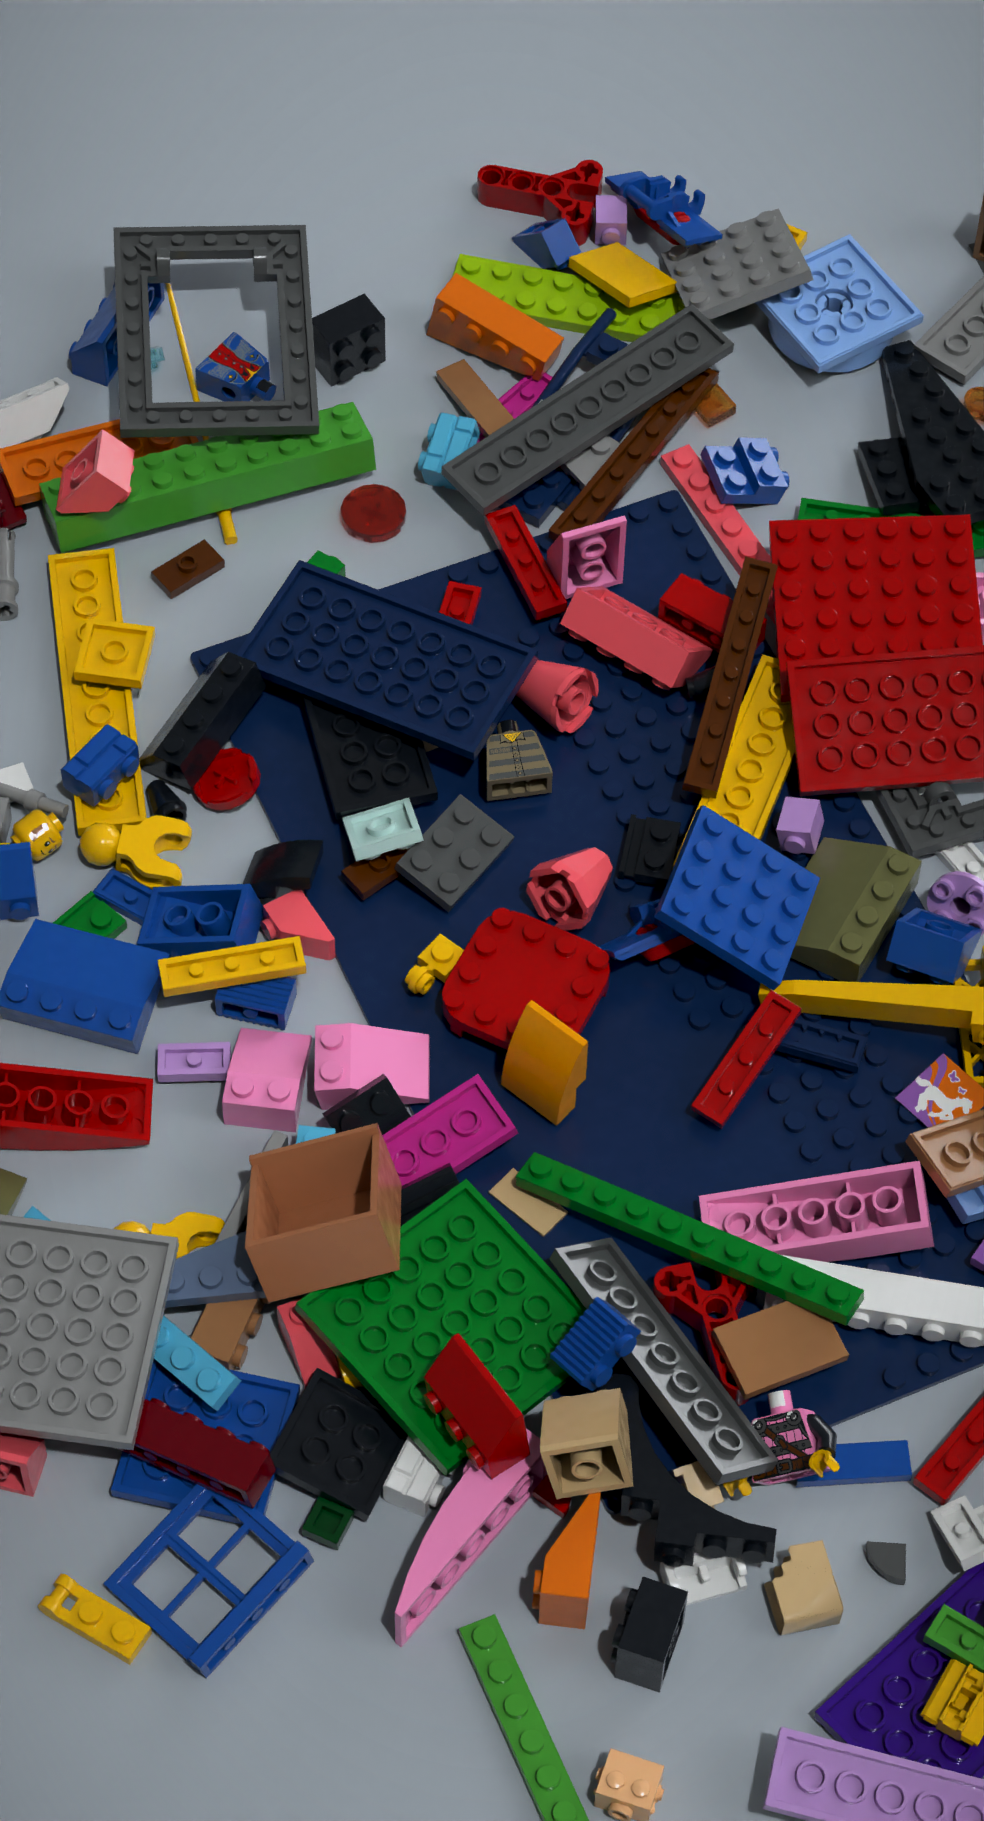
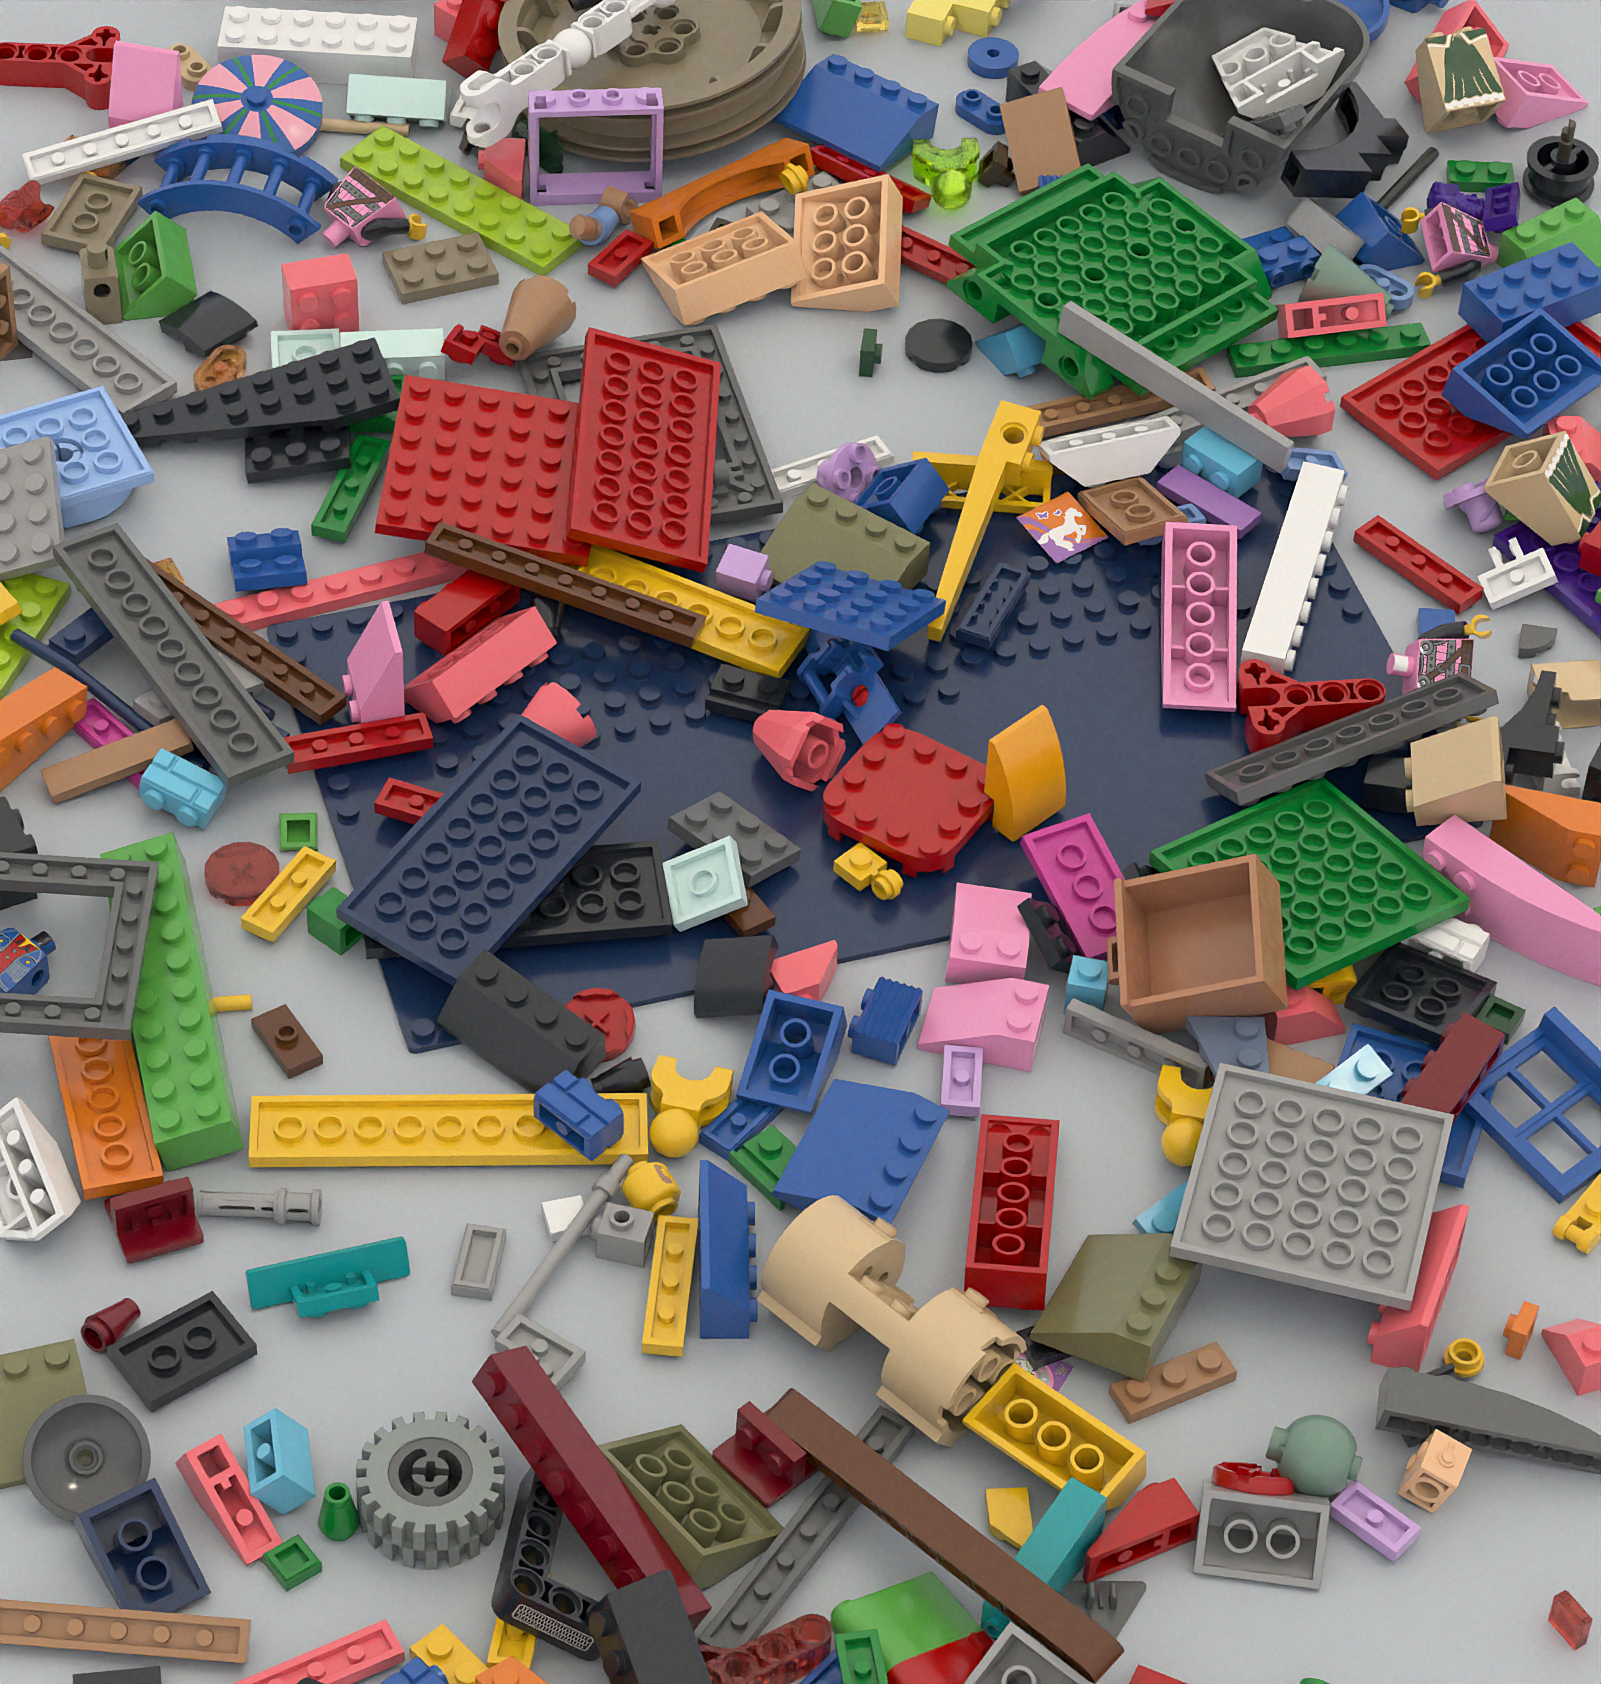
camera: 85 degrees left, 10 degrees down
(96, 476) = (188, 1067): coral slope -> none
(114, 653) = (418, 1094): yellow plate -> none
(231, 966) = (870, 1016): yellow plate -> none
(350, 545) = (288, 894): none -> yellow plate
(430, 545) = (298, 831): none -> bright green slope
(476, 1409) = (1431, 841): red slope -> none
(516, 764) = (642, 763): dark tan torso -> none
(531, 1208) = (1147, 837): tan tile -> none
(596, 1344) = (1353, 764): blue brick -> none
(691, 1238) = (1220, 707): green plate -> none
(746, 1059) = (1019, 643): red plate -> none
(778, 1347) = (1344, 652): medium nougat tile -> none

